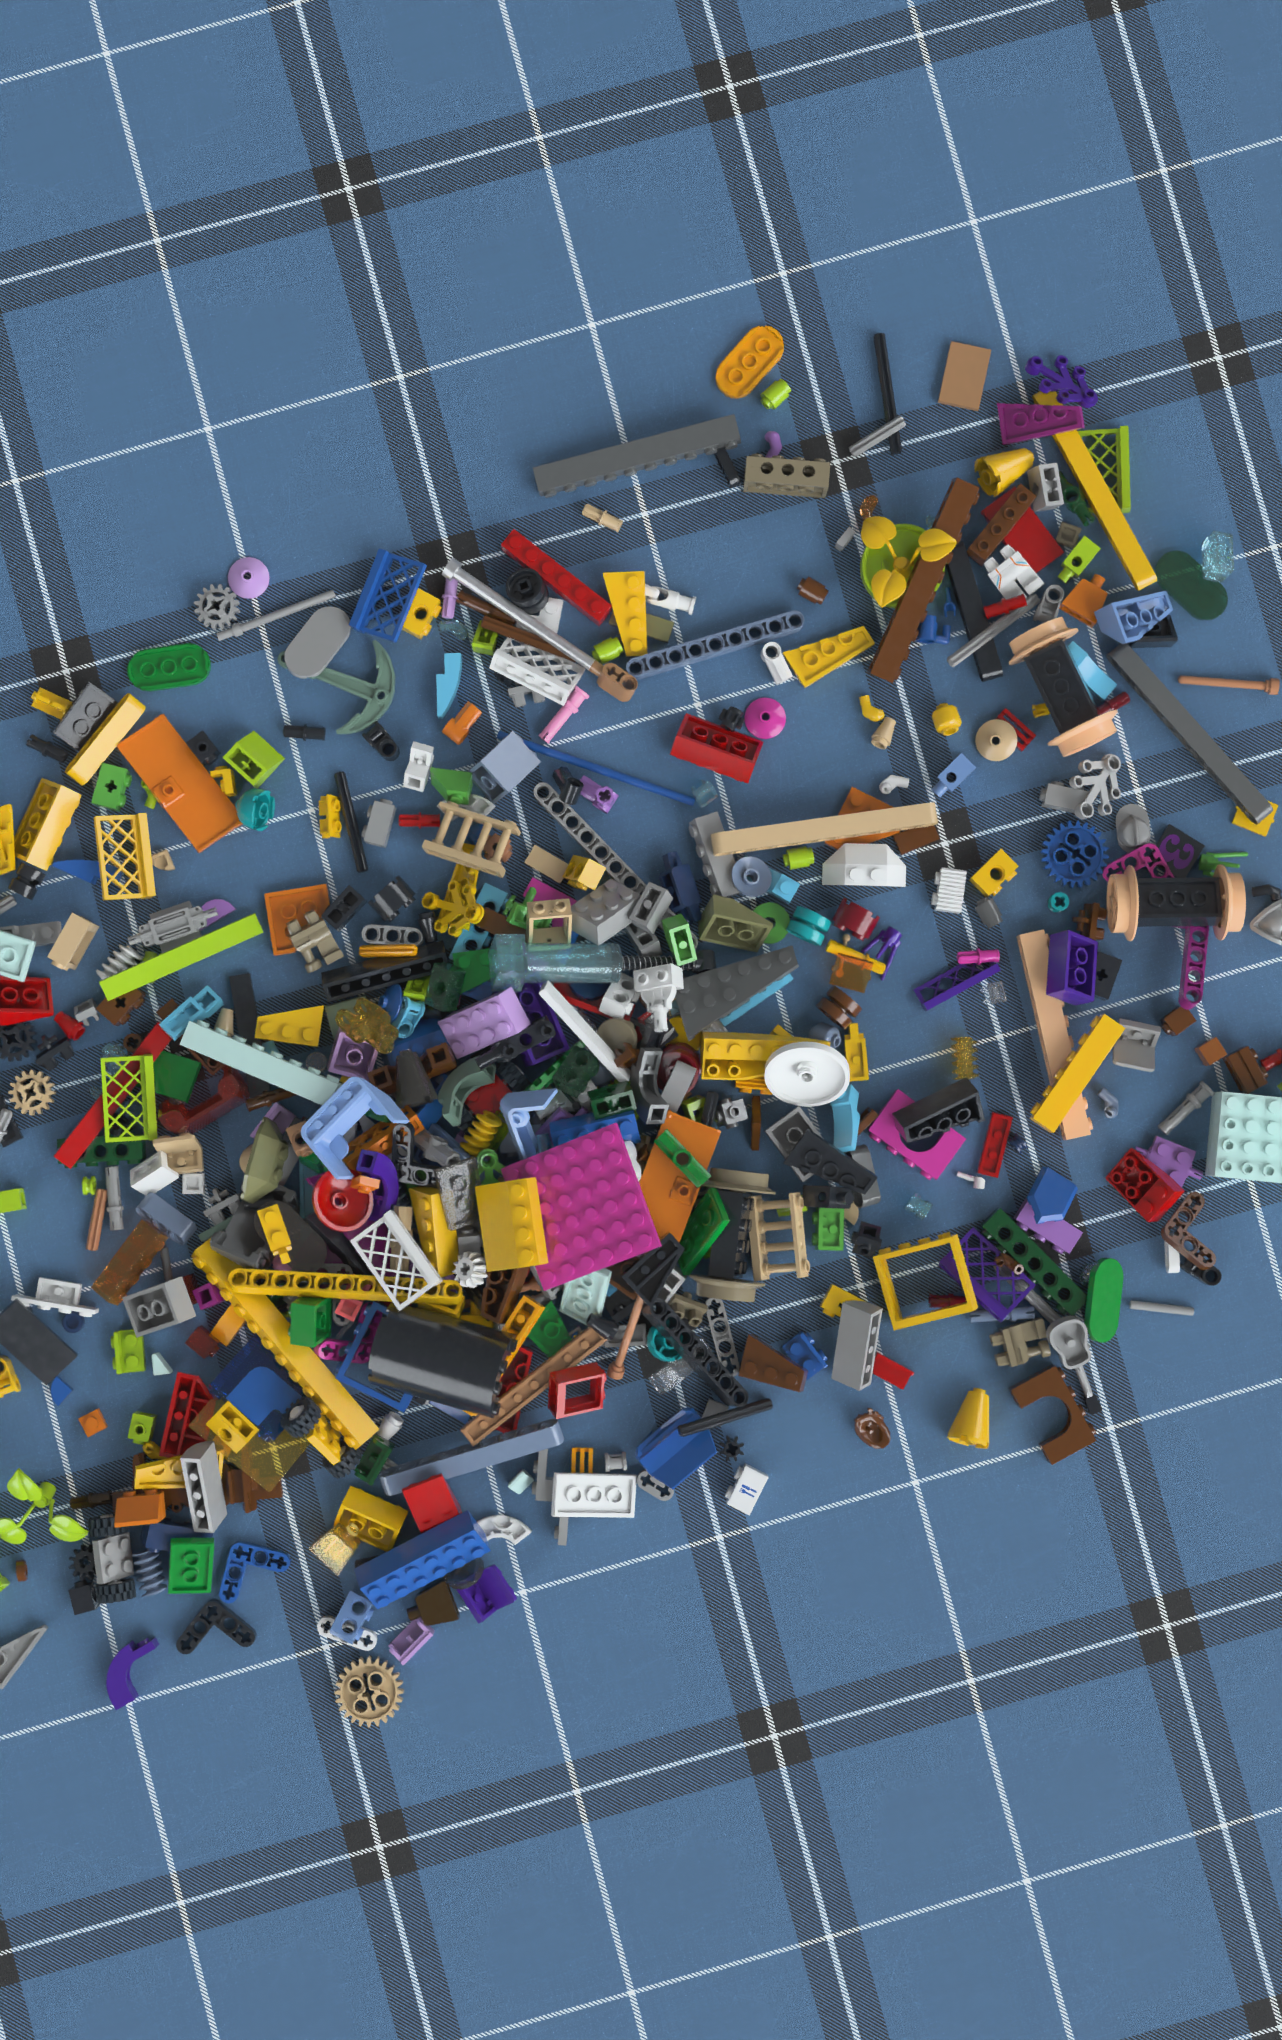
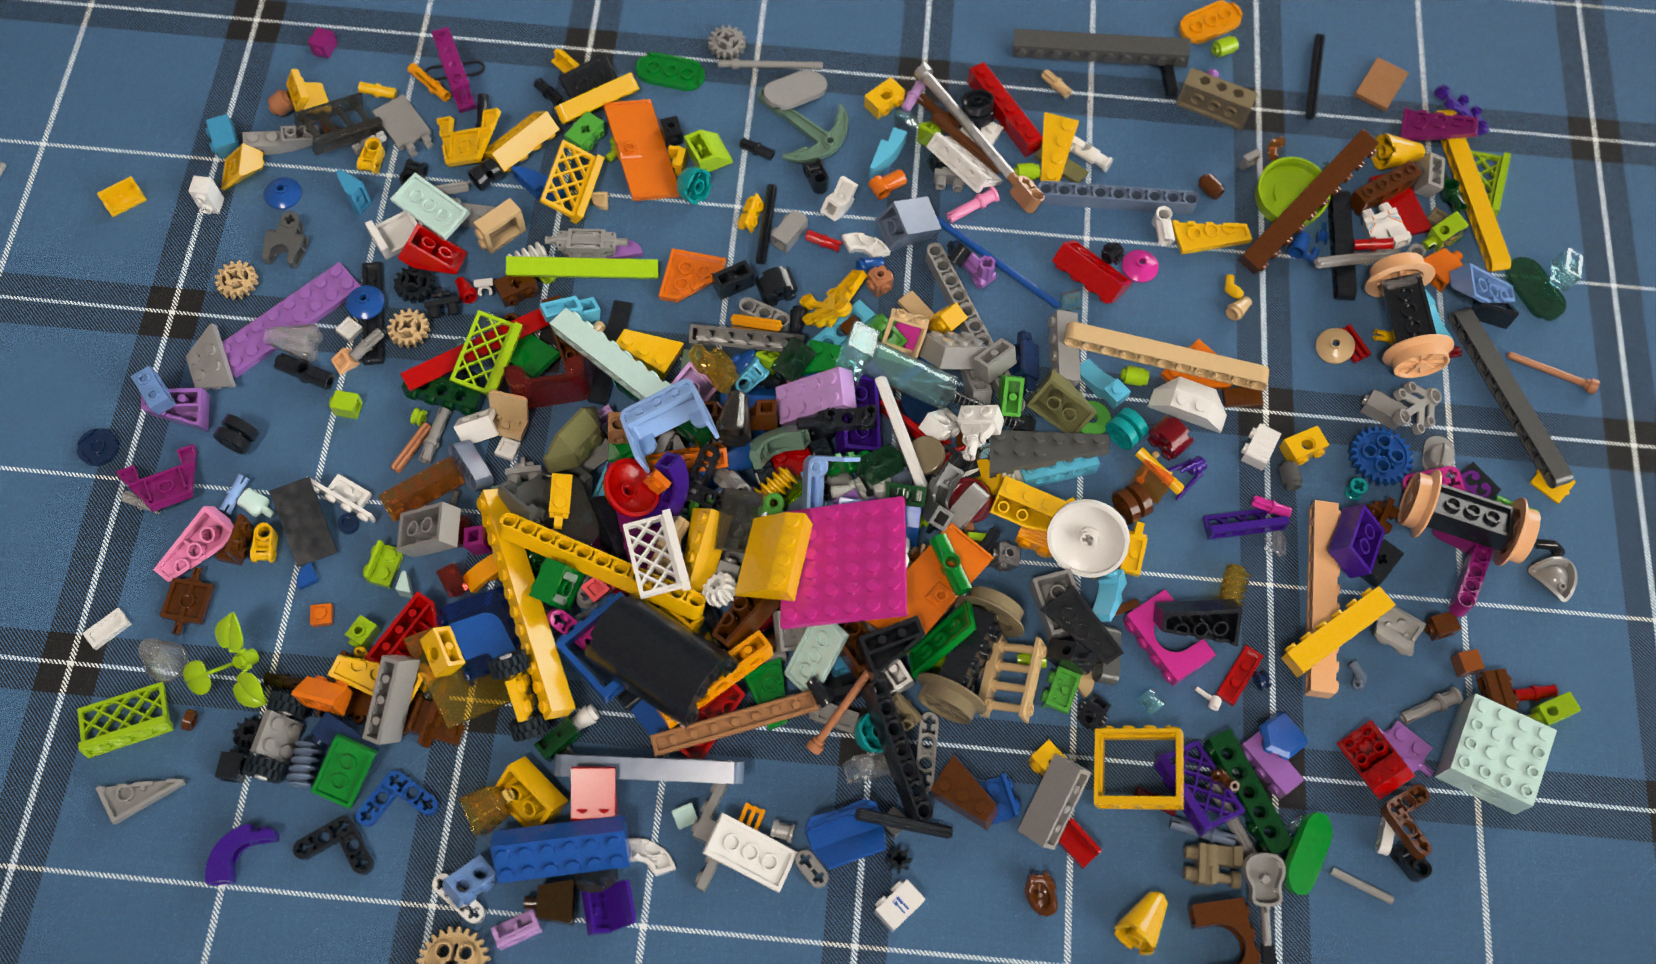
camera: 20 degrees right, 20 degrees down
(251, 587) = (760, 35): lavender dish -> none
(267, 1098) = (602, 400): reddish brown pin -> none
(311, 935) = (700, 289): dark tan hips -> none
(371, 594) = (857, 69): blue fence -> none
(452, 784) = (861, 221): bright green slope -> none
(474, 859) = (859, 275): tan fence -> none
(559, 1379) = (753, 738): red window -> none
(626, 1058) = (929, 468): reddish brown tile -> none
(755, 1123) = (1023, 577): reddish brown tile -> none
(757, 871) = (1089, 371): sand blue dish -> none
(877, 436) = (1299, 98): light grey axle -> none
(891, 585) = (1279, 190): yellow plant -> none
(891, 782) = (1235, 347): white arm -> none
(946, 719) = (1296, 314): yellow head -> none
(961, 768) = (1293, 355): medium blue torso -> none

